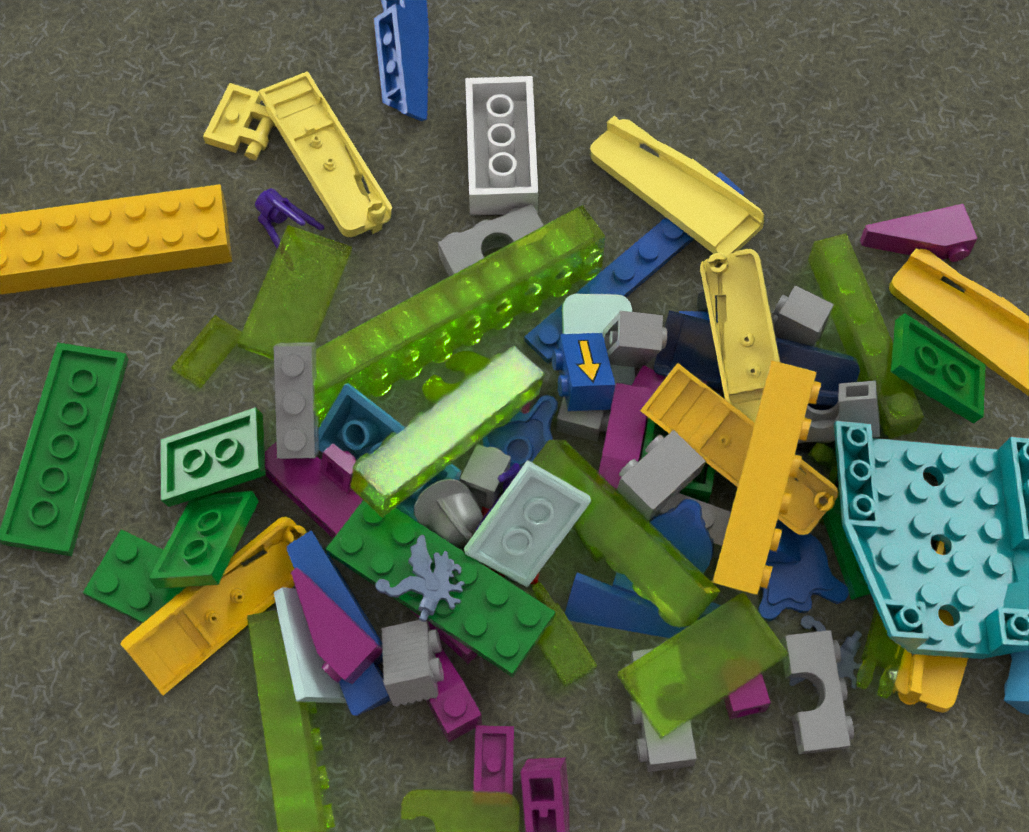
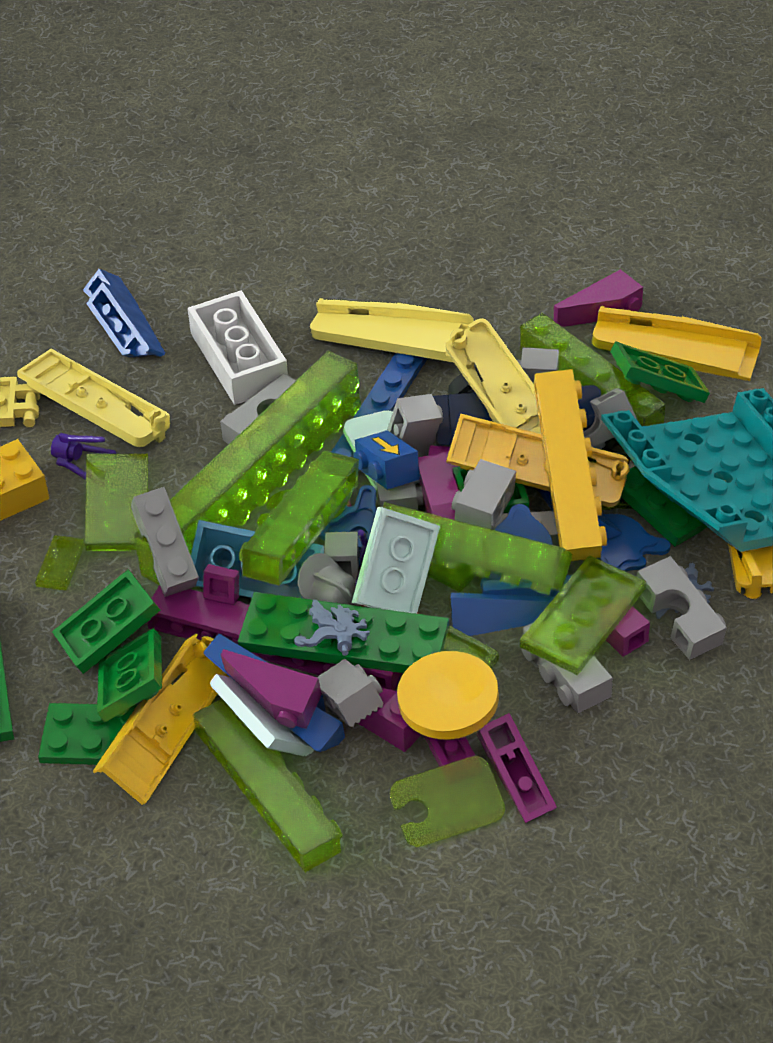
camera: 20 degrees left, 20 degrees down
(506, 718) = (448, 695): none -> yellow piece
(880, 652) = (716, 561): clear neon green hinge -> none

